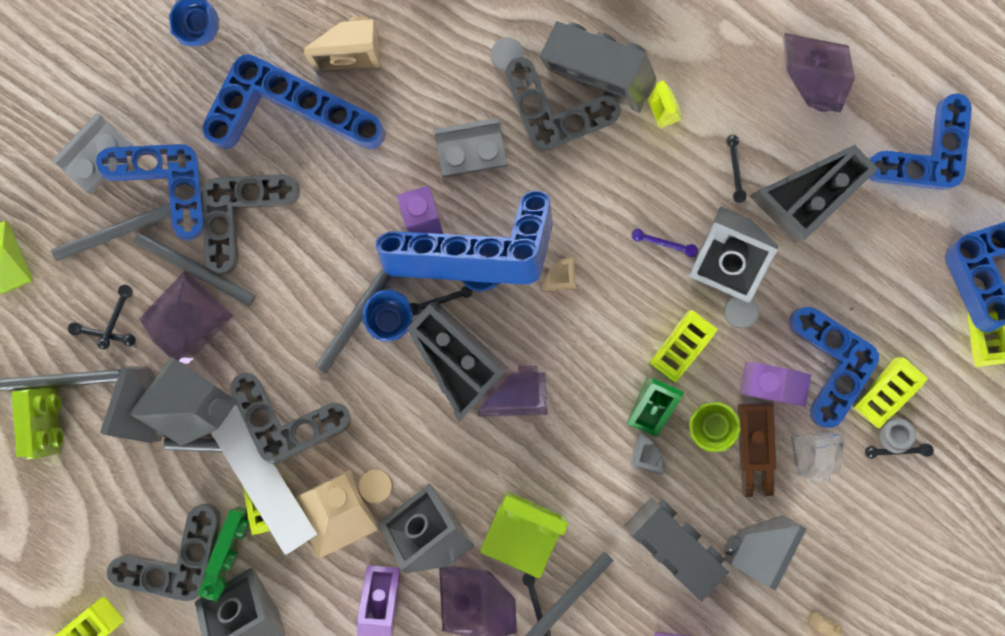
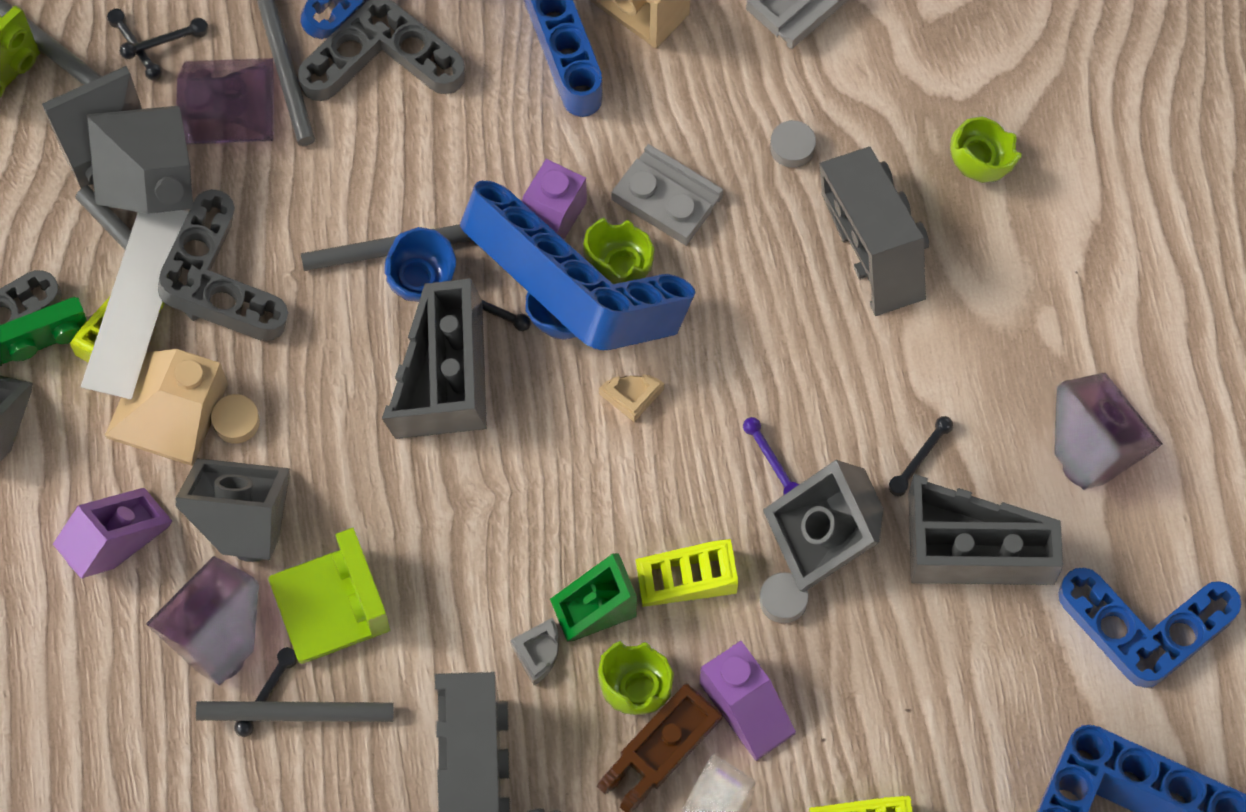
camera: 45 degrees right, 20 degrees down
(482, 207) = (618, 251): none -> lime hair
(518, 395) = (464, 454): clear purple slope -> none
(555, 122) = (778, 244): dark grey beam -> none
(664, 105) = (905, 320): neon yellow slope -> none
(844, 355) = (851, 743): blue beam -> none

